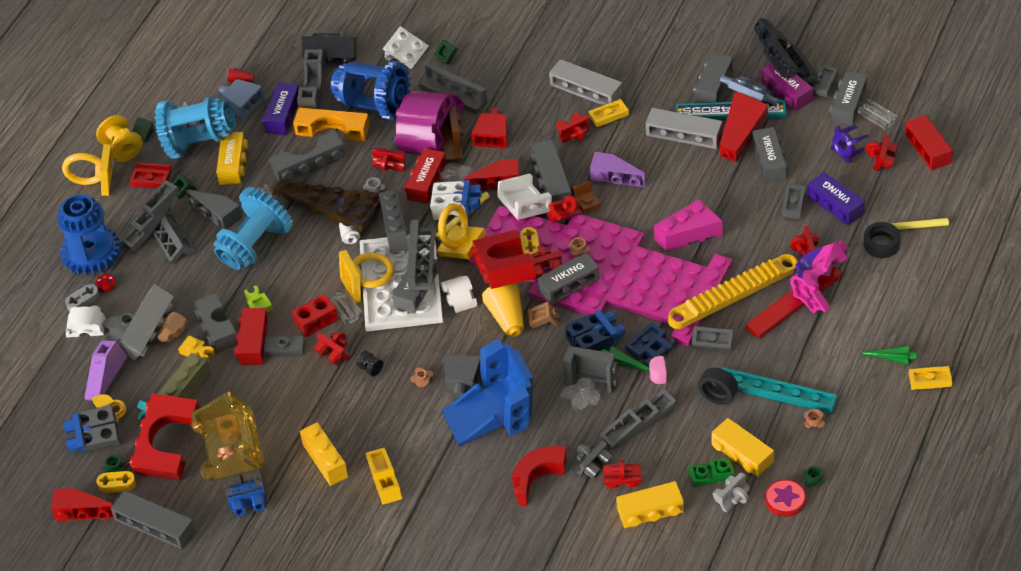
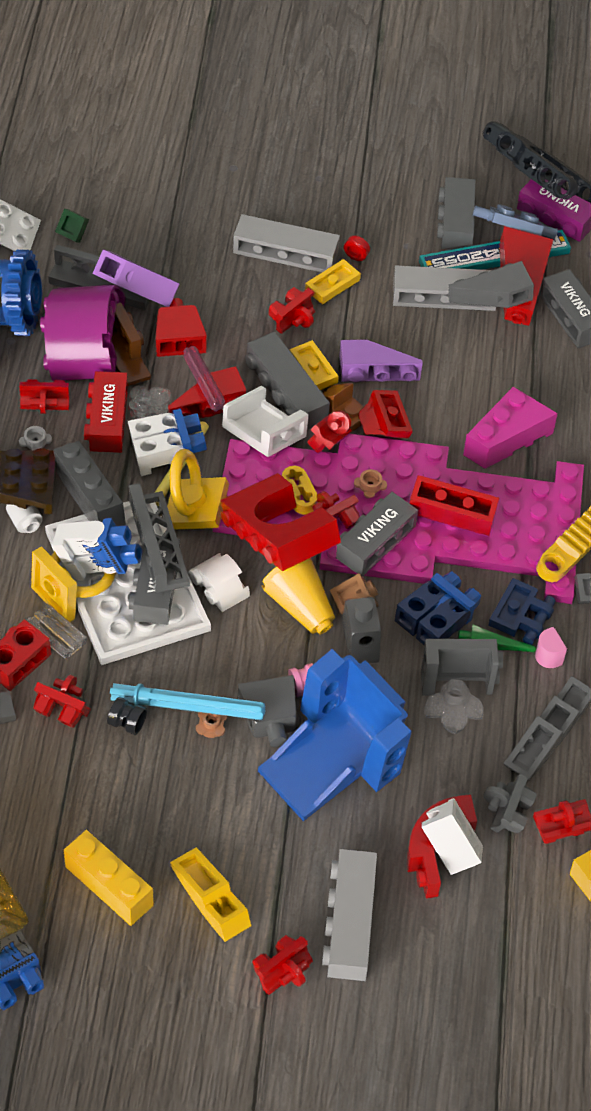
camera: 25 degrees left, 5 degrees up
(378, 256) = (95, 547): none -> hips
(409, 360) = (188, 701): none -> medium azure axle
(412, 523) = (284, 967): none -> red hips
(465, 503) = (351, 915): none -> light grey brick
(469, 90) = (135, 278): none -> medium lavender slope
(492, 162) = (204, 378): none -> clear pink axle
(537, 329) = (358, 621): none -> dark grey torso
(543, 468) = (453, 837): none -> white hinge
(573, 166) = (315, 364): none -> yellow plate
(607, 205) = (385, 415): none -> red slope
(625, 268) = (454, 505): none -> red brick
(633, 93) = (356, 248): none -> red tile
(713, 132) = (496, 288): none -> dark grey slope

